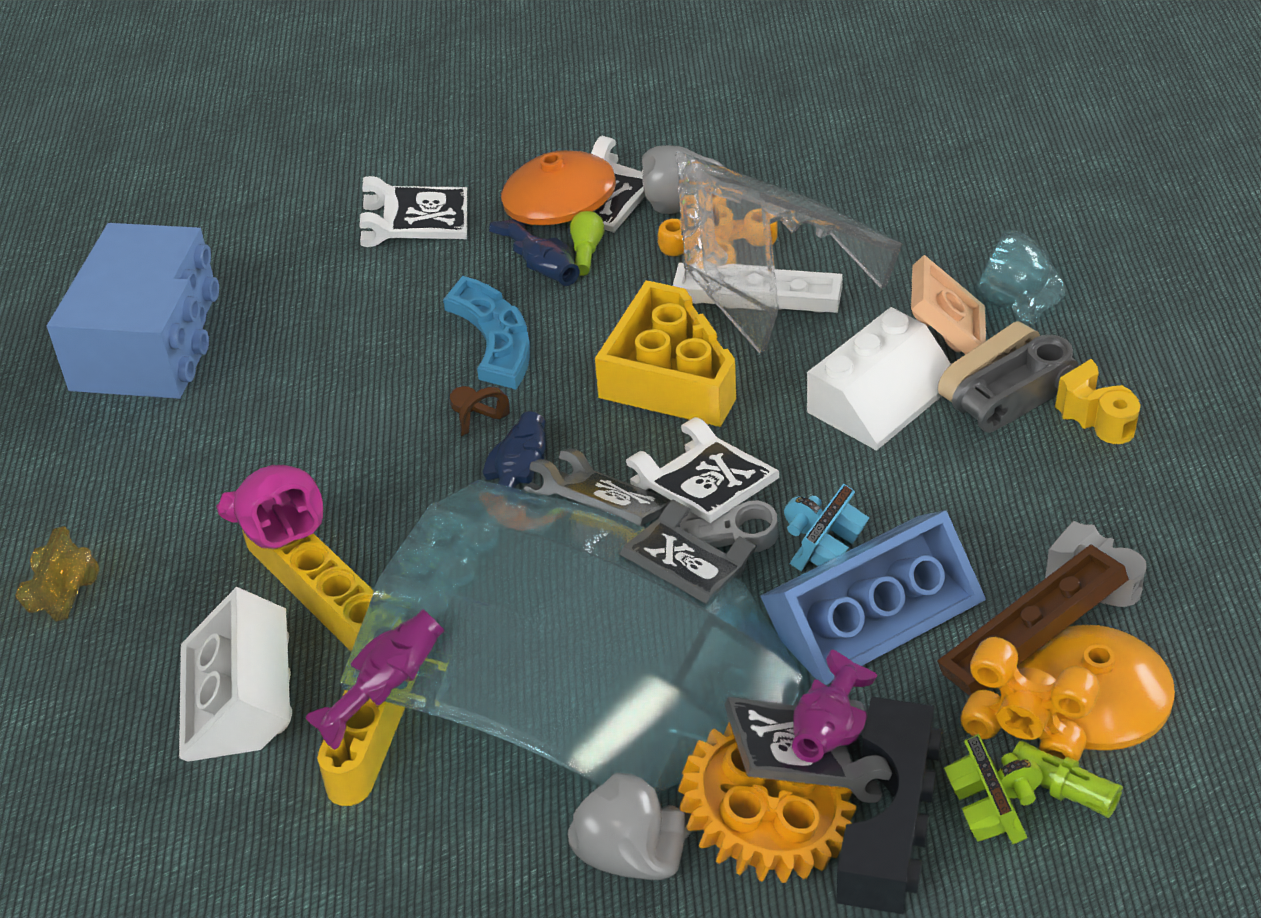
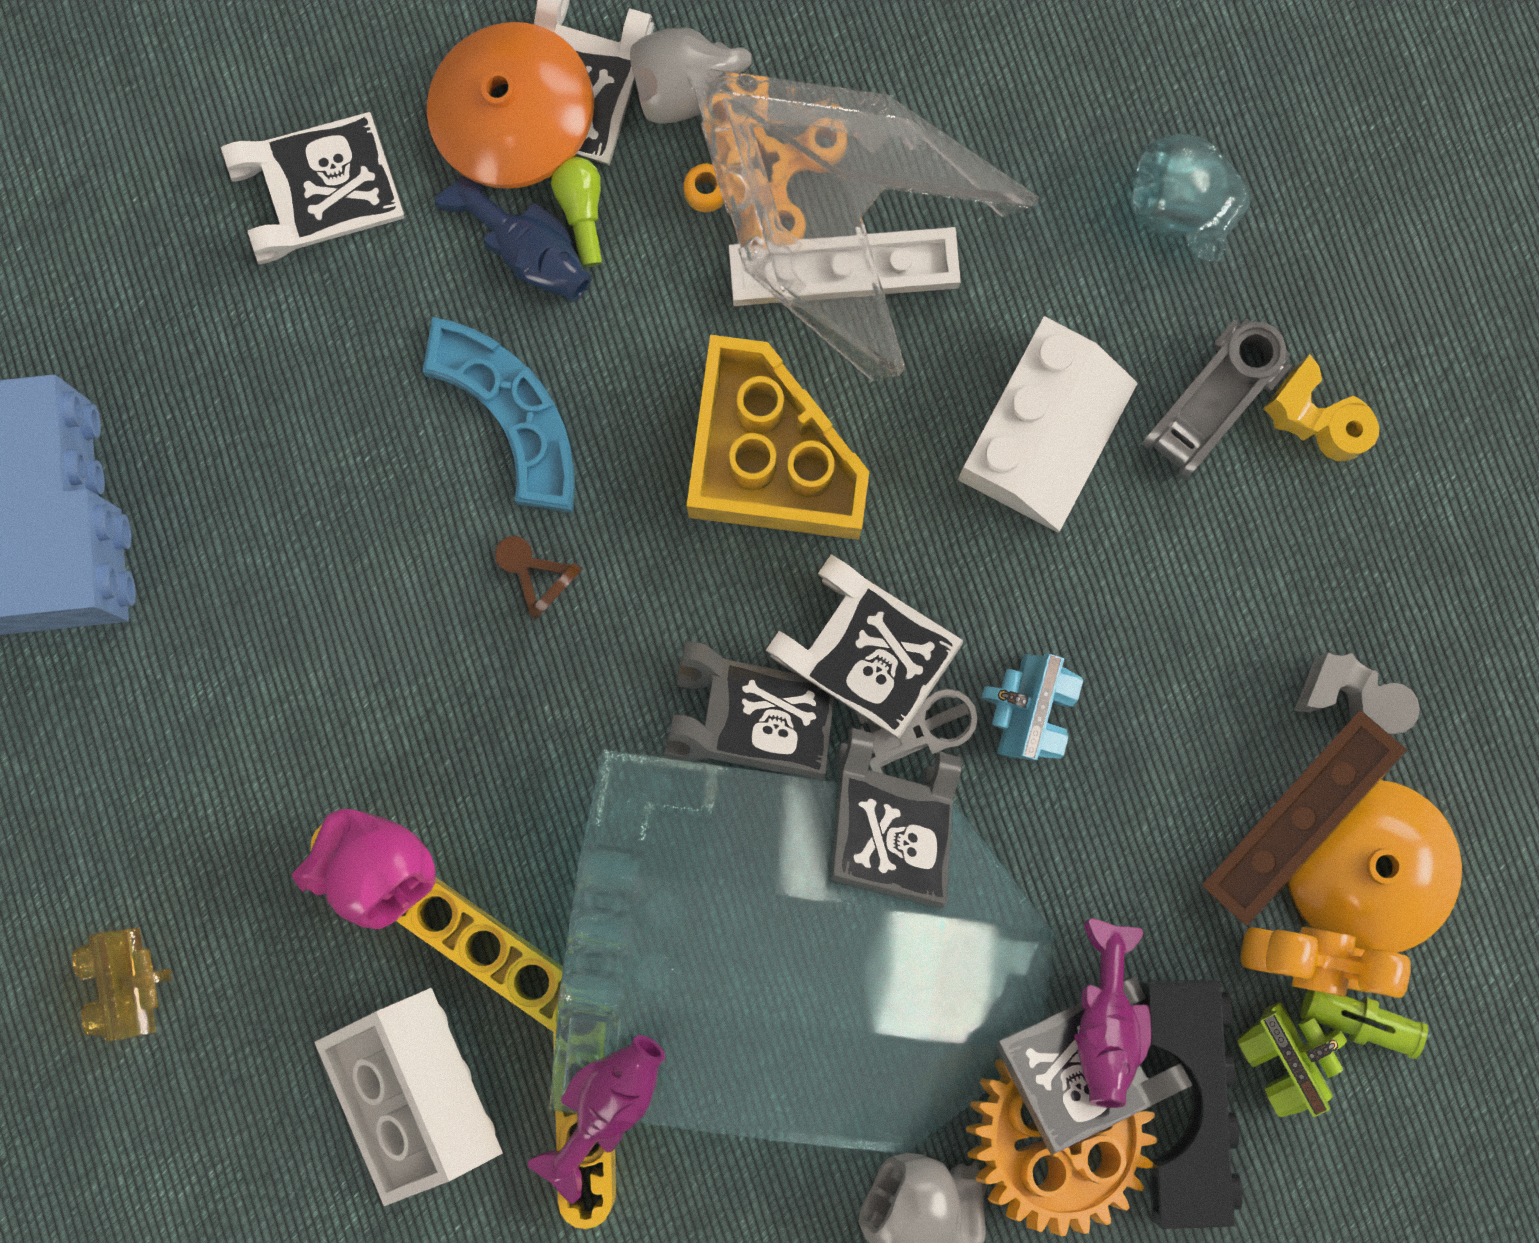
camera: 20 degrees left, 40 degrees up
(513, 455) = (619, 657): dark blue animal -> none
(875, 595) = (1112, 801): medium blue slope -> none
(947, 307) = (1113, 289): light nougat plate -> none
(990, 351) = (1176, 364): tan beam -> none

